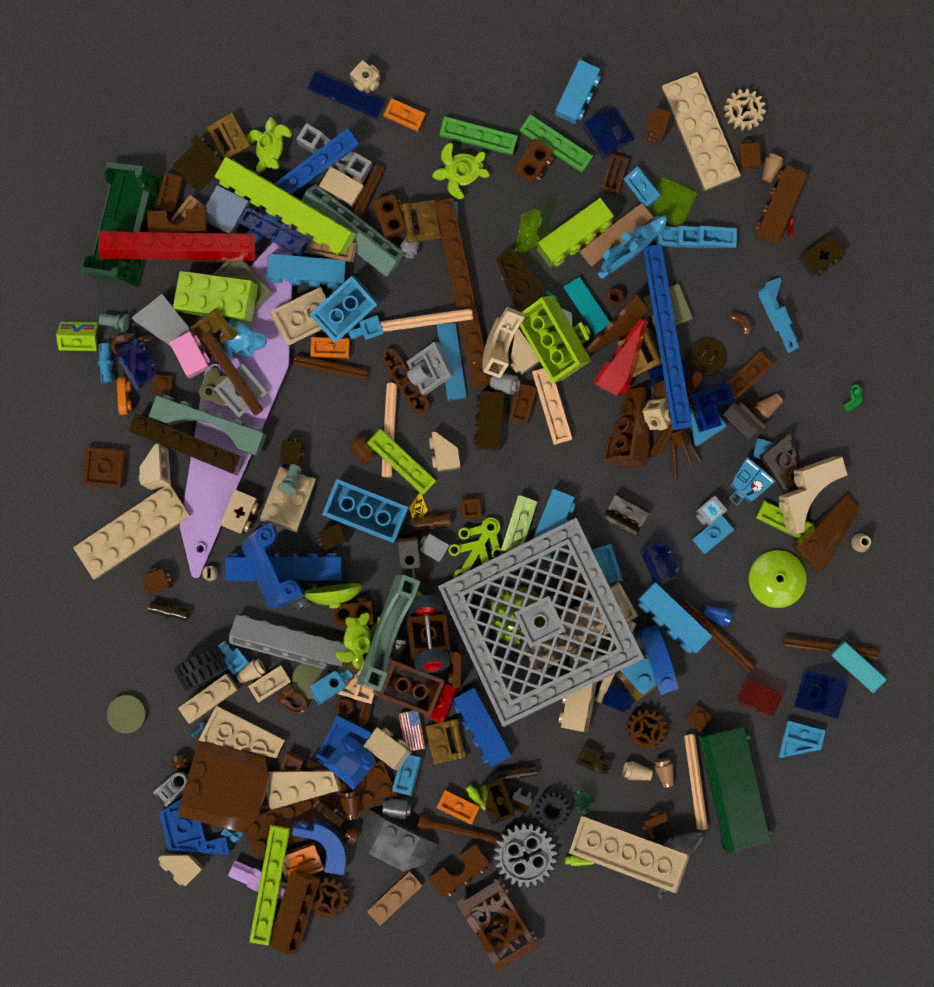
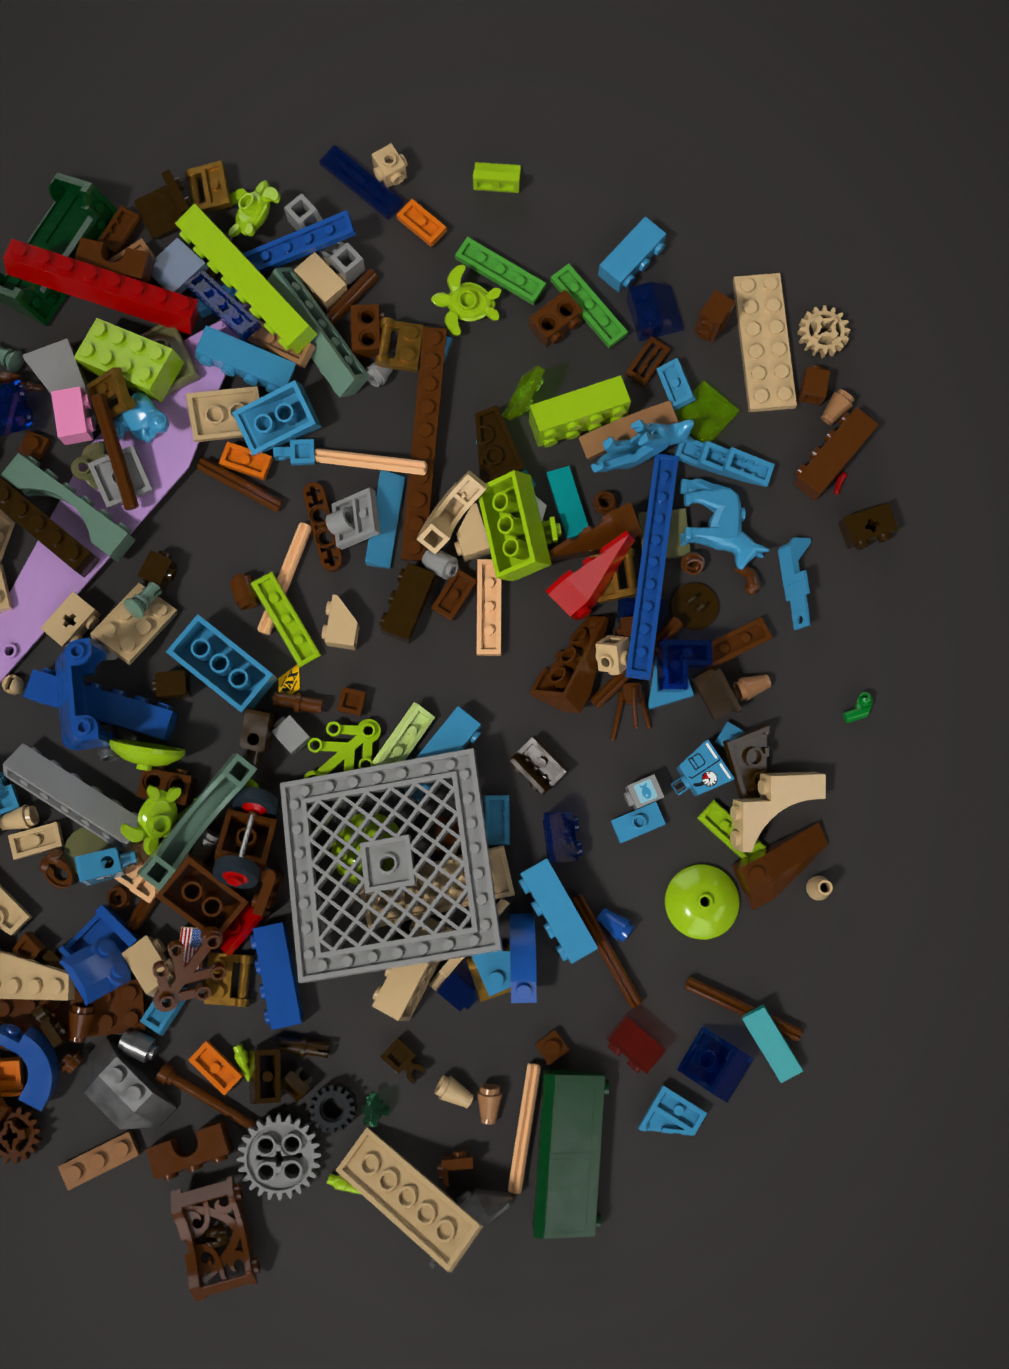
camera: 10 degrees right, 5 degrees down
(417, 745) = (187, 973): none -> reddish brown plant
(451, 58) = (496, 177): none -> lime panel
(658, 725) = (469, 1043): reddish brown gear -> none
(696, 324) = (695, 567): none -> reddish brown plate
(711, 288) = (724, 526): none -> dark azure animal

